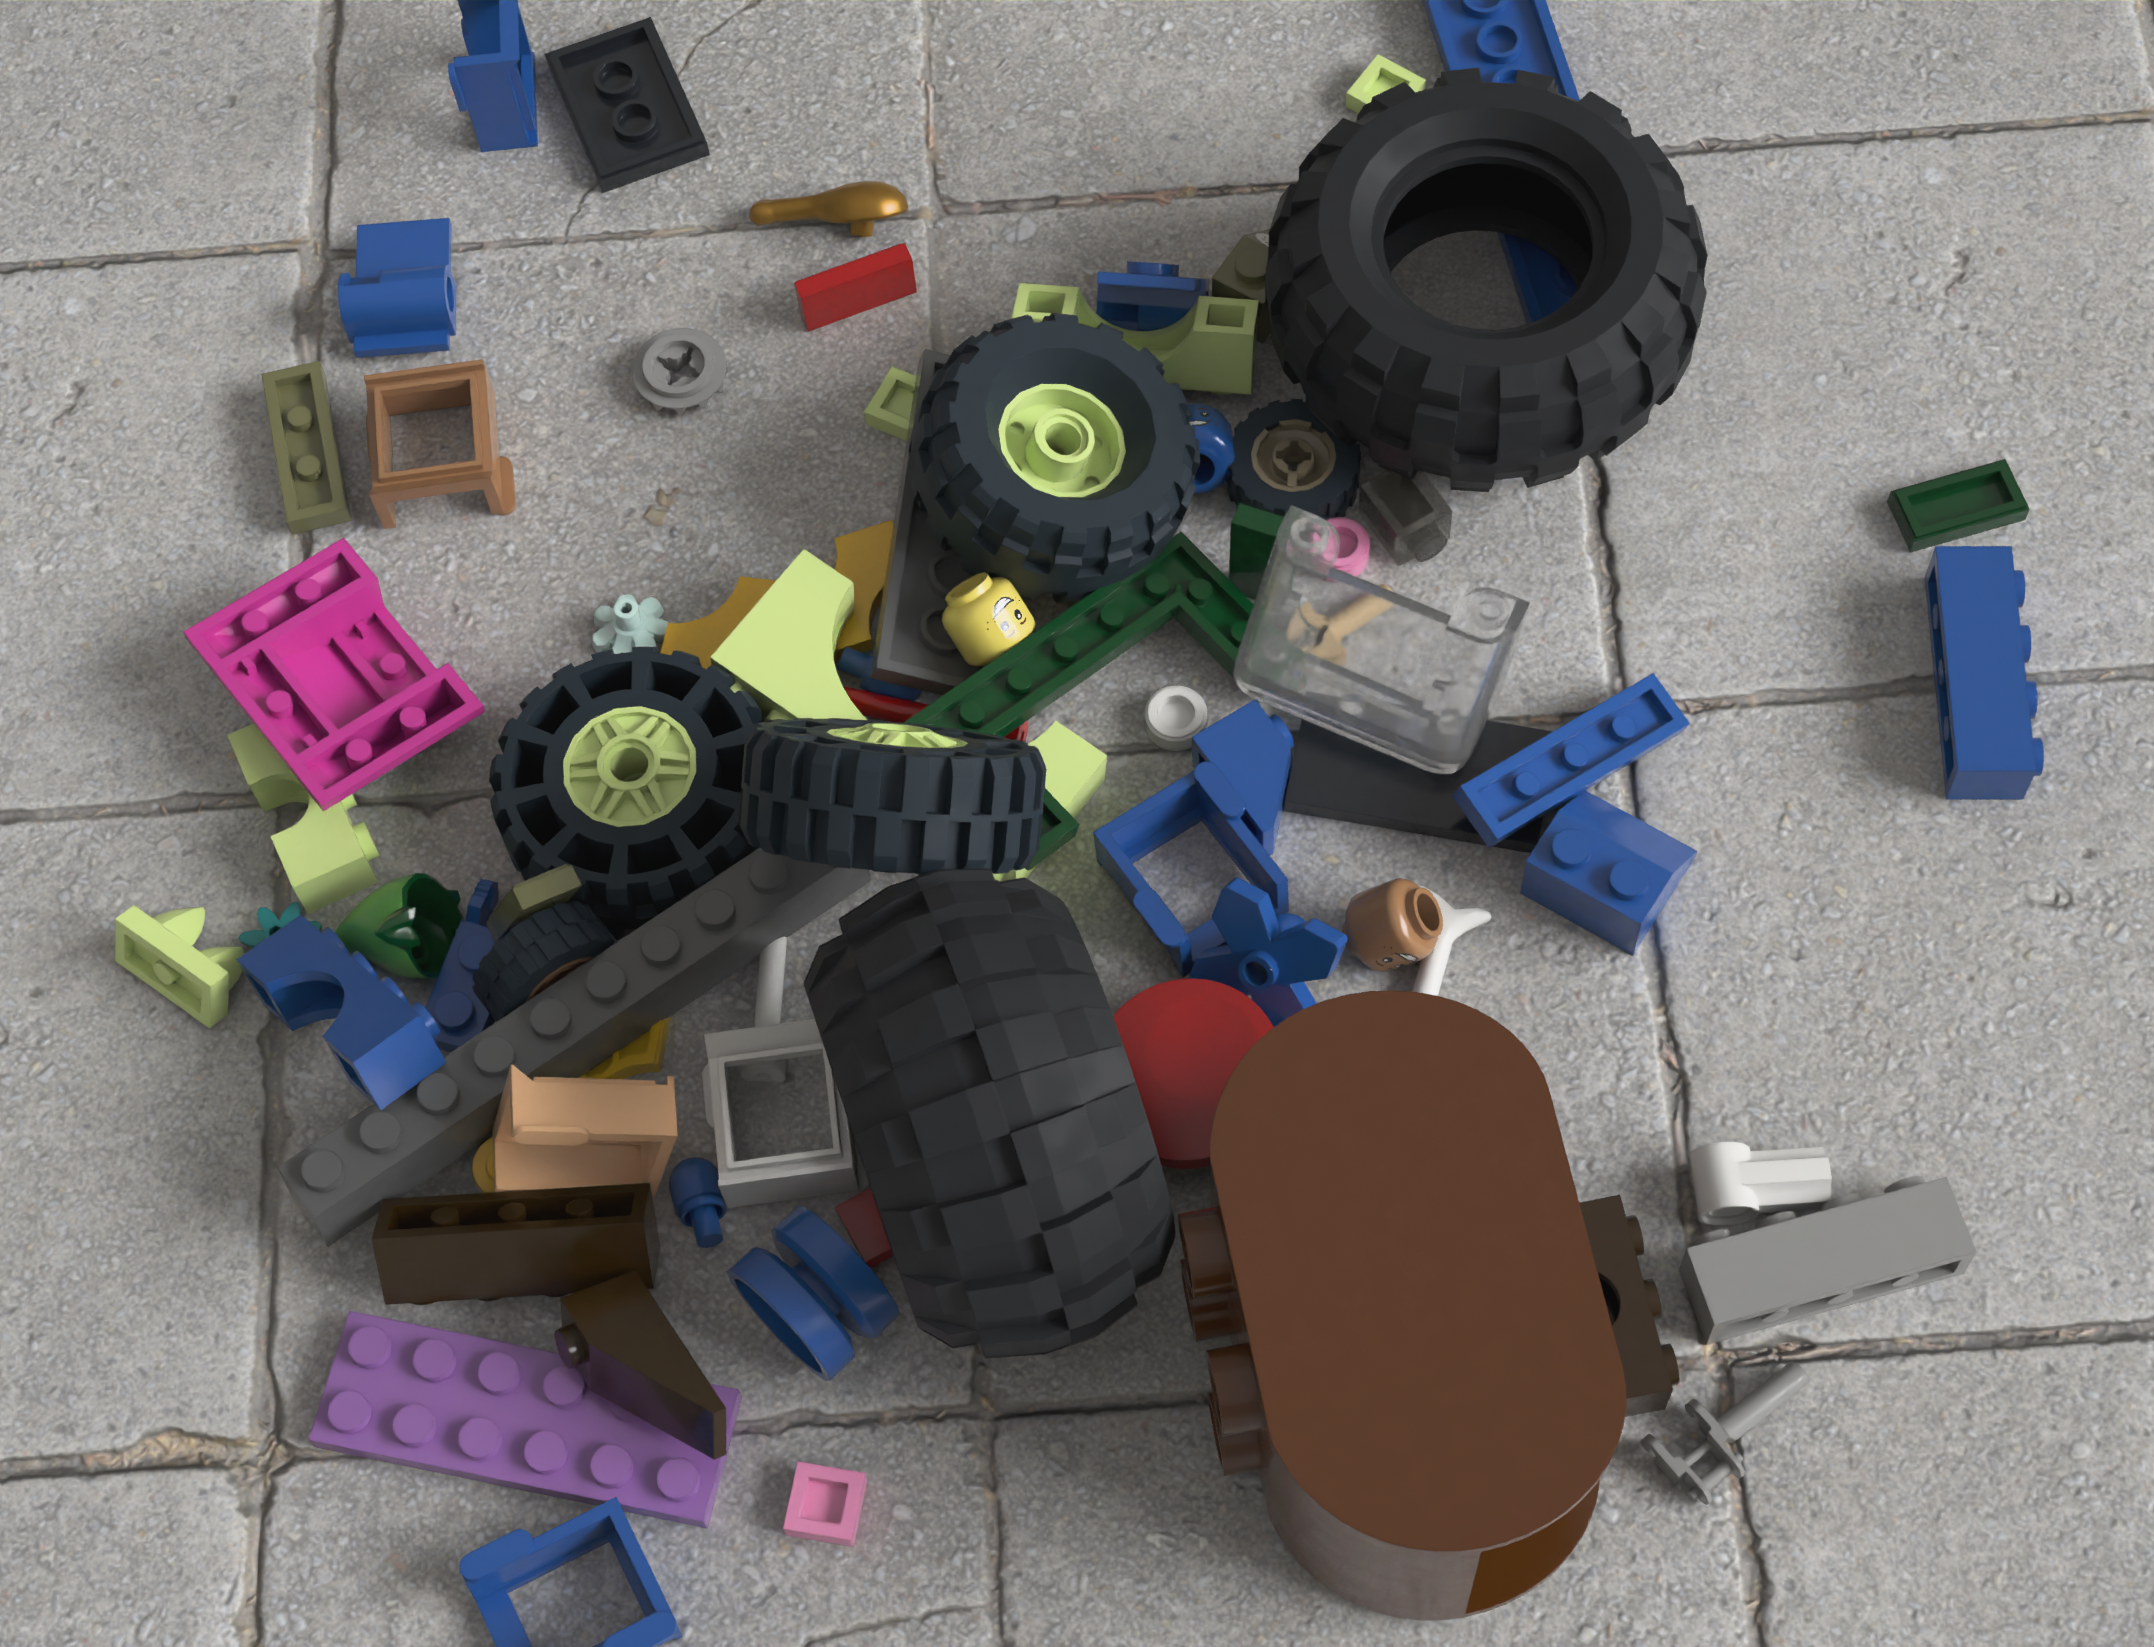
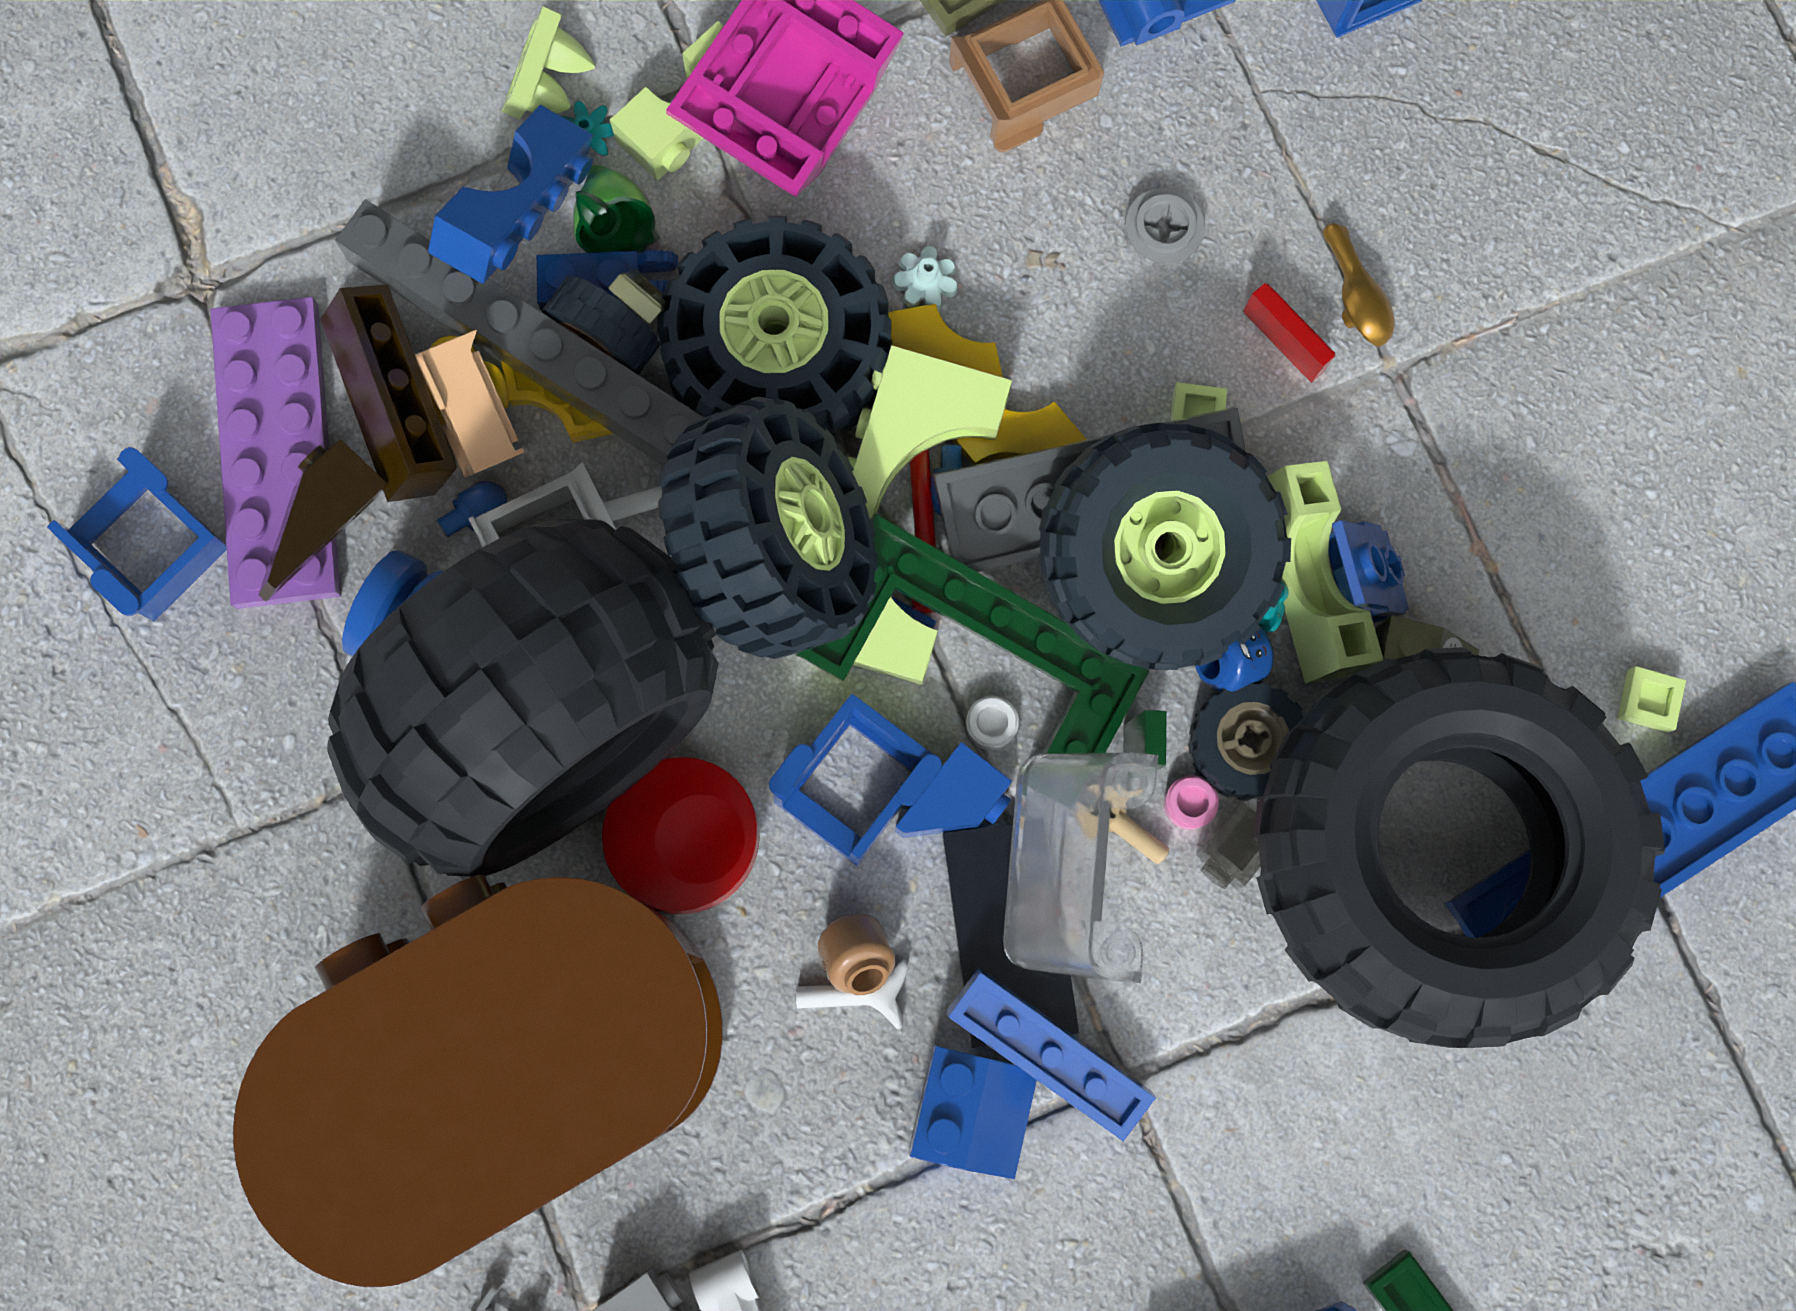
camera: 60 degrees right, 15 degrees up
(627, 104) = (1399, 89): black tile -> none
(825, 1504) = (273, 685): bright pink tile -> none
(986, 618) = (1004, 545): light yellow head -> none
(1268, 951) = (792, 867): blue plant -> none
(1634, 1305) = (546, 1247): dark brown arch -> none

